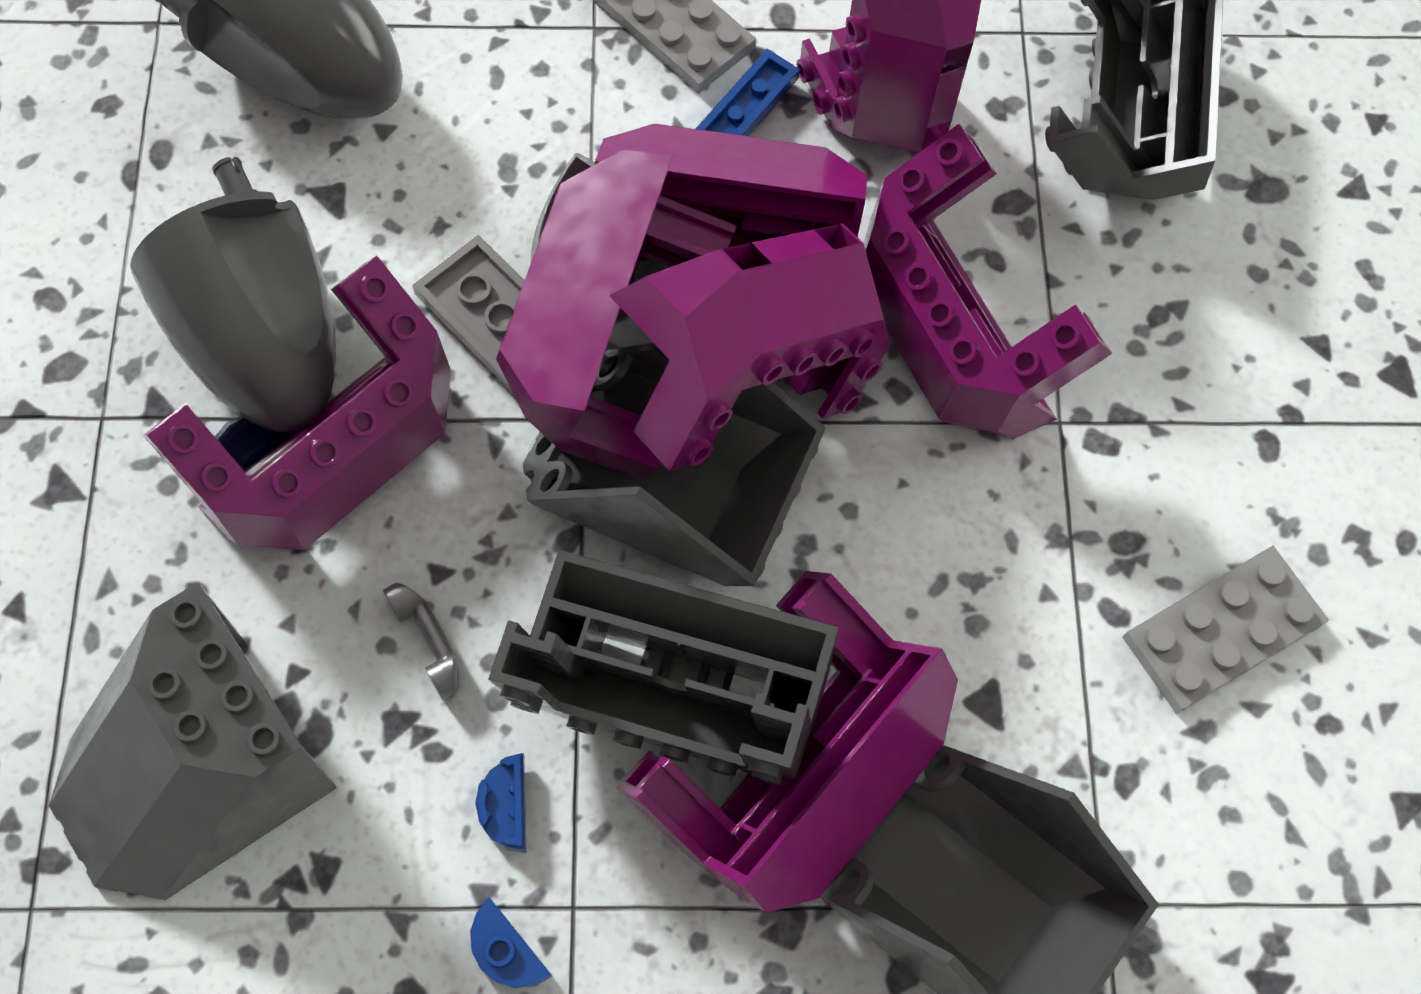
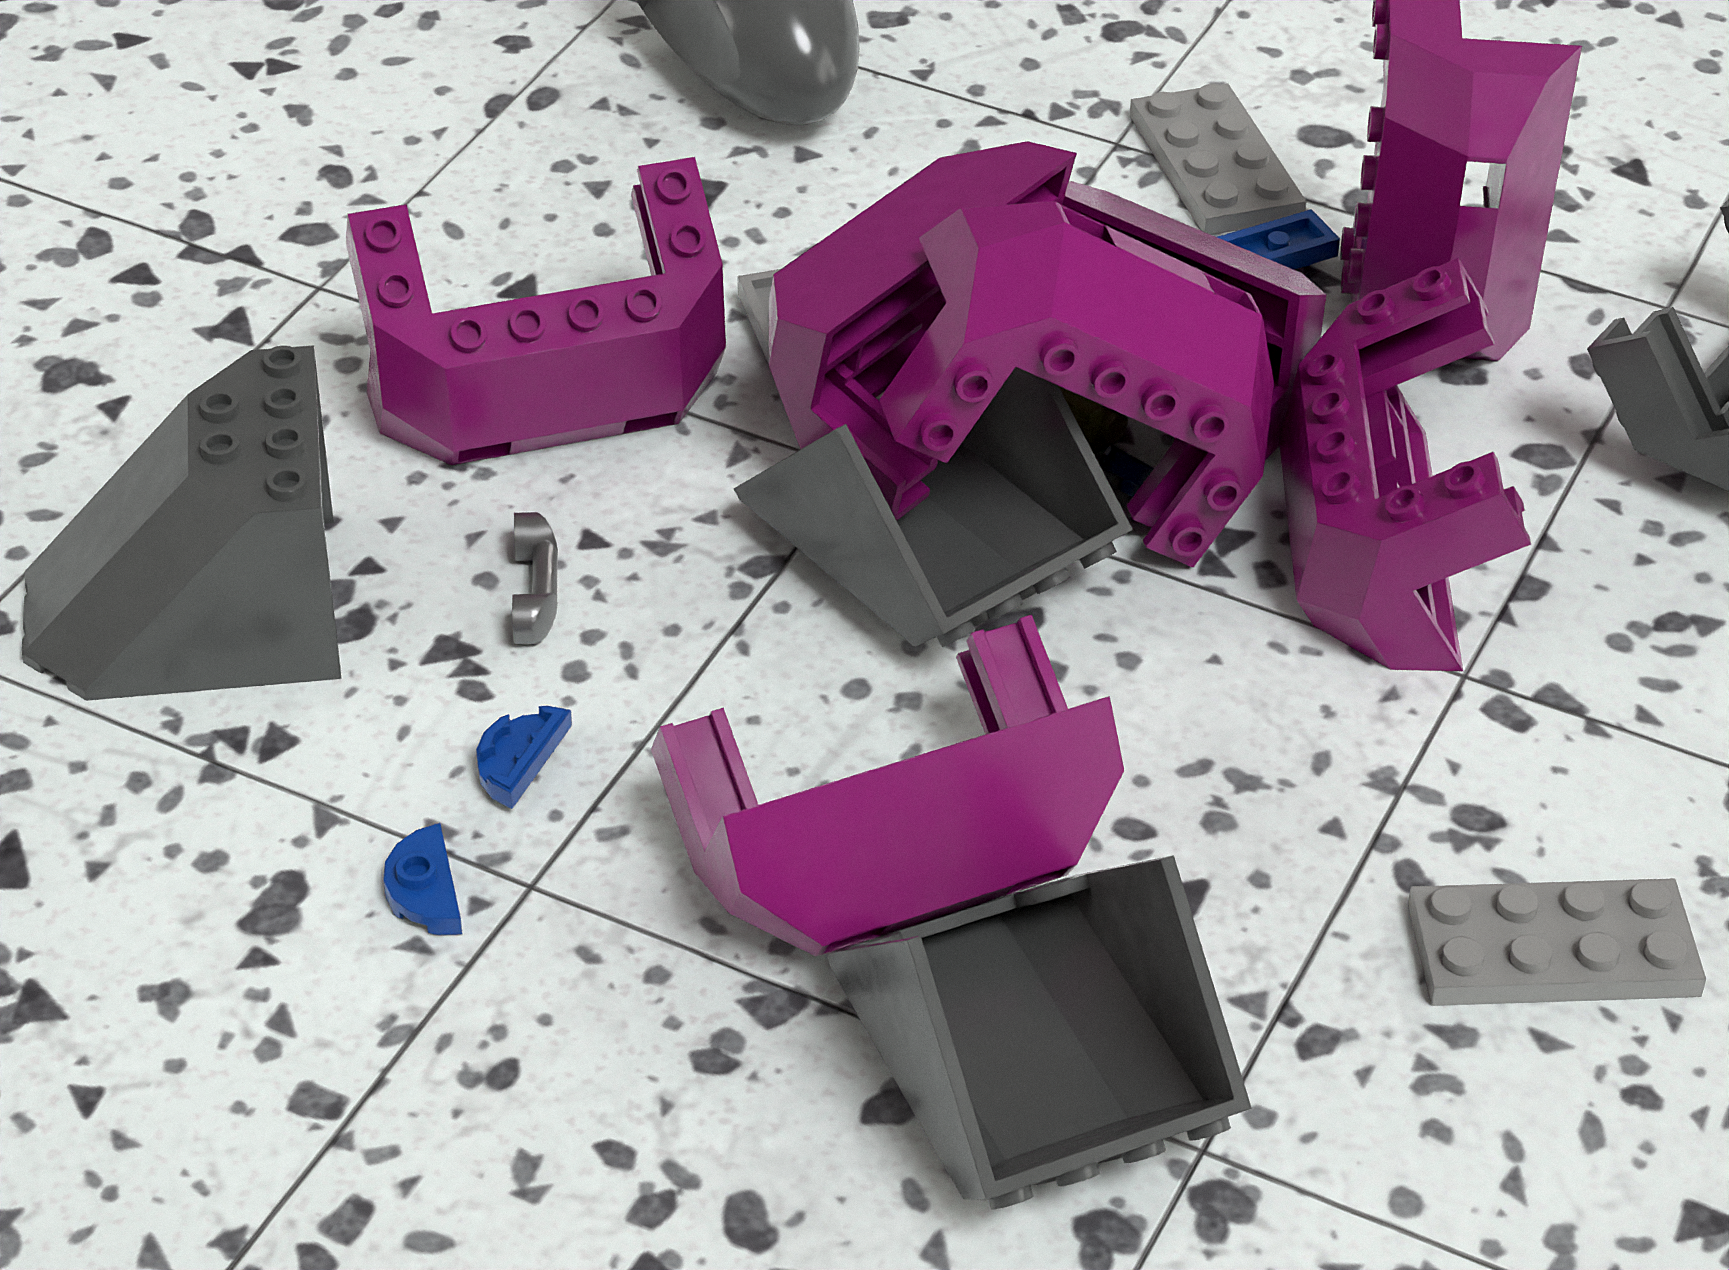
camera: 30 degrees right, 25 degrees down
(244, 302) = (534, 176): dark grey windscreen -> none
(686, 671) = (794, 648): dark grey wedge -> none

